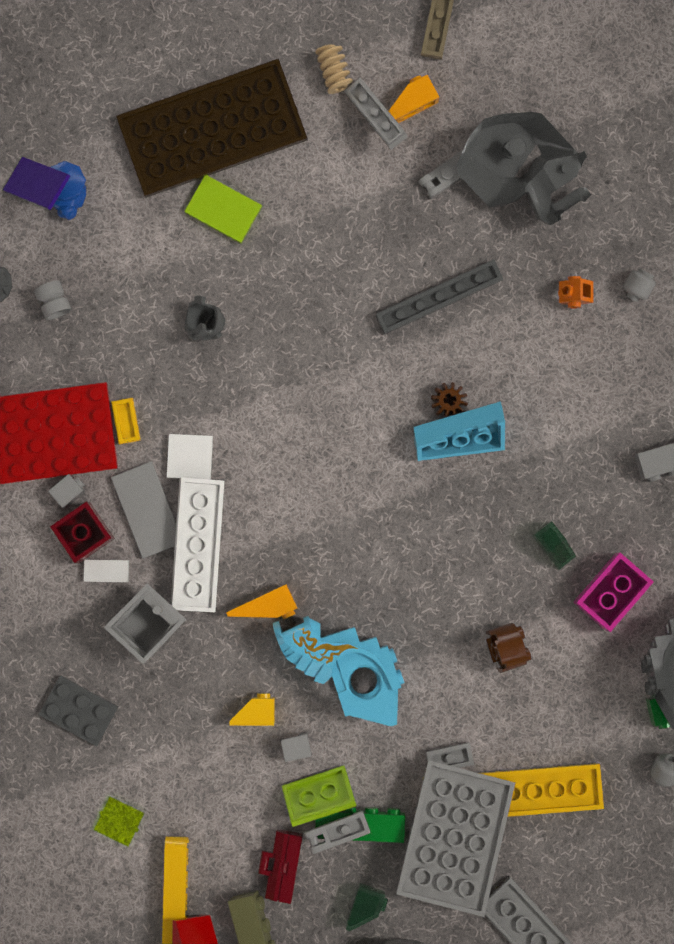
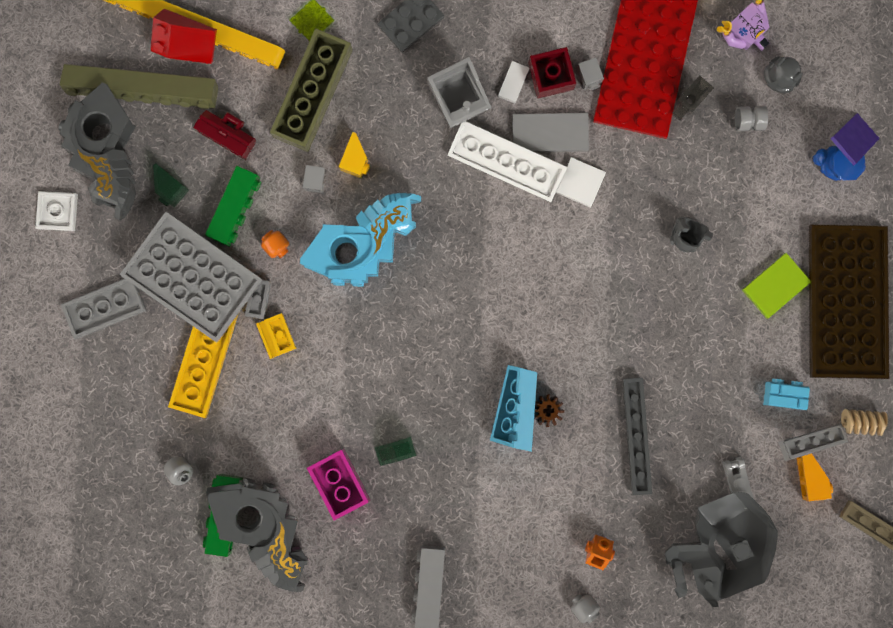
camera: 110 degrees right, 0 degrees up
(44, 369) = (697, 93): none -> clear smoke torso
(126, 421) = (629, 142): yellow tile -> none
(199, 788) = (311, 90): none -> olive brick
(270, 605) = (436, 201): light orange slope -> none
(318, 796) = (268, 181): lime tile -> none
(337, 158) = (786, 395): none -> medium azure brick
(338, 832) = (233, 185): light grey plate -> none
(383, 762) = (275, 244): none -> orange head
(482, 722) = (276, 336): none -> yellow plate
(508, 647) = (327, 379): reddish brown brick -> none

